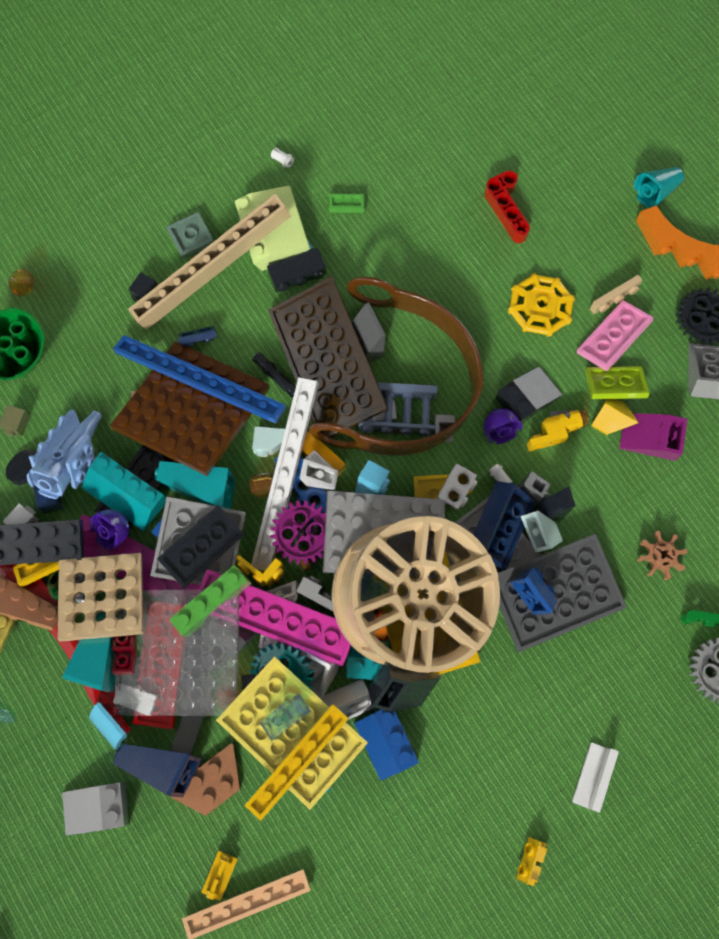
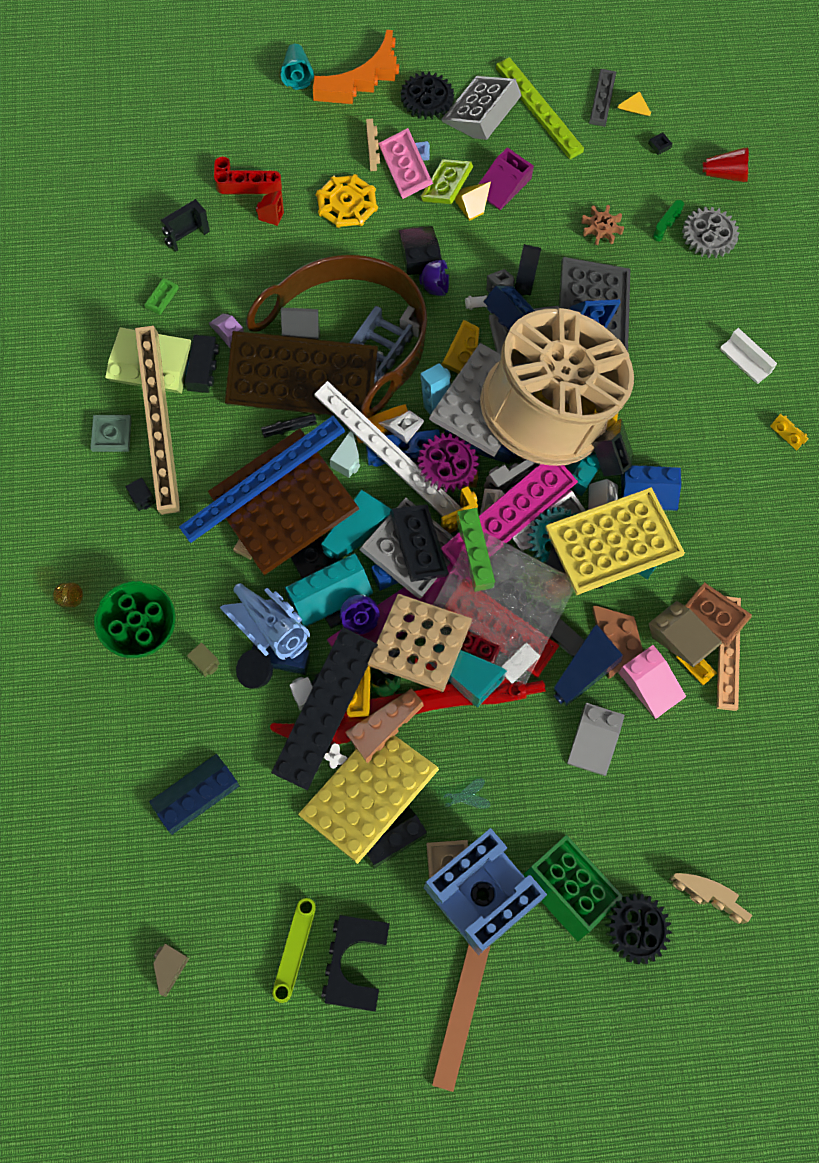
camera: 65 degrees left, 5 degrees down
(107, 726) = (532, 694): medium azure slope -> none
(178, 839) = (652, 681): none -> bright pink slope
(189, 338) = (213, 471): dark blue plate -> none
(236, 849) = (683, 634): none -> dark tan slope
(261, 484) = (384, 479): clear orange head -> none
(279, 872) = (718, 613): none -> nougat tile
(285, 716) = (603, 534): clear light blue slope -> none
(286, 159) = (83, 325): white pin -> none
(296, 762) = (643, 542): yellow plate -> none
(344, 272) = (224, 325): none -> lavender slope
(425, 179) = (183, 223): none -> black panel
(453, 485) = (467, 334): white brick -> none
(488, 244) = (271, 208): none -> red slope
(541, 531) = (540, 292): light aqua slope -> none
(557, 427) = (459, 241): yellow plate -> none
(640, 344) = (423, 148): none -> light blue plate

